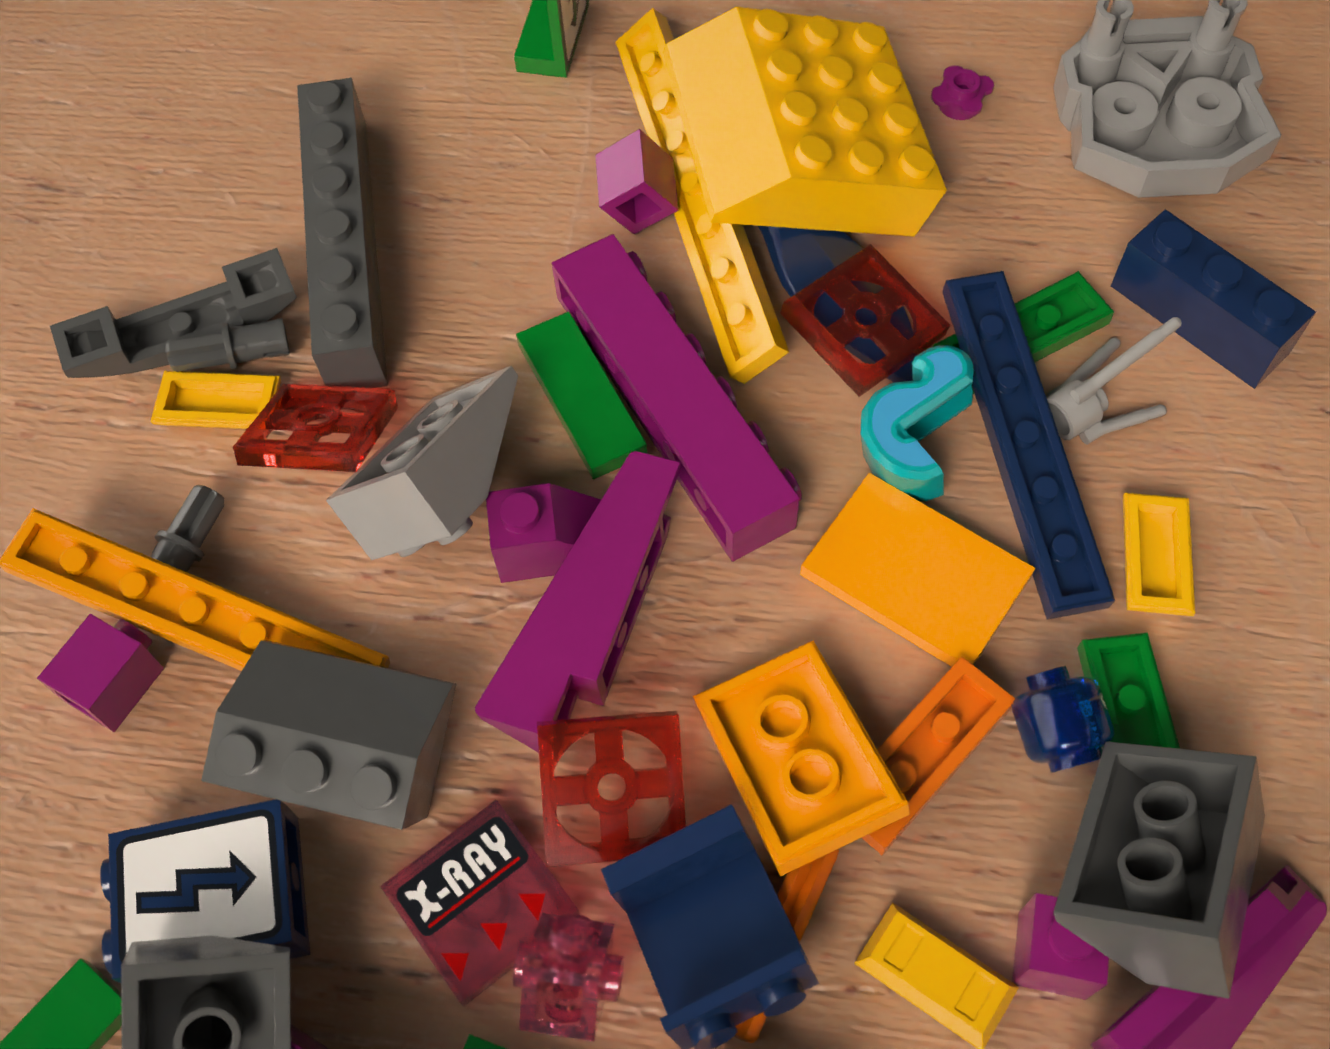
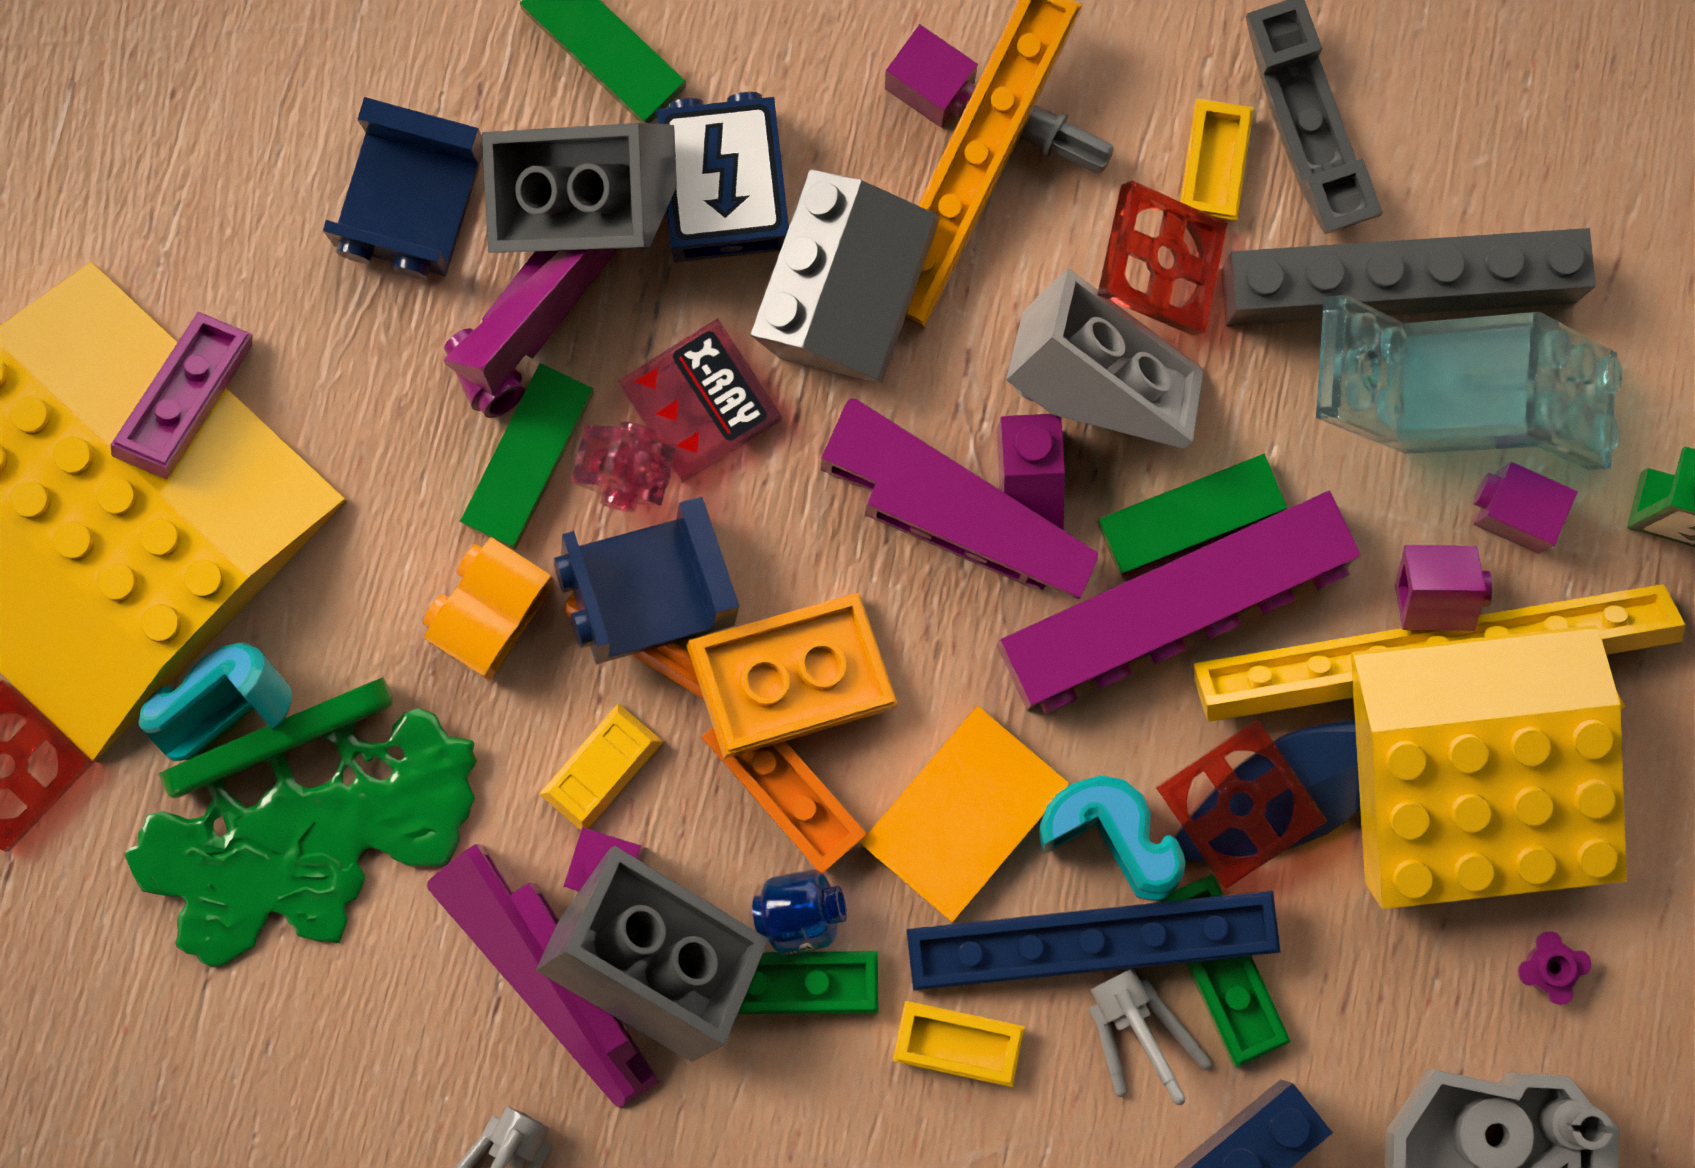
camera: 90 degrees right, 20 degrees up
(227, 346) = (1275, 168): dark grey axle -> none
(442, 153) = (1468, 383): none -> clear light blue bracket
(555, 132) = (1523, 507): none -> magenta brick
(577, 789) = (734, 514): clear red piece -> none

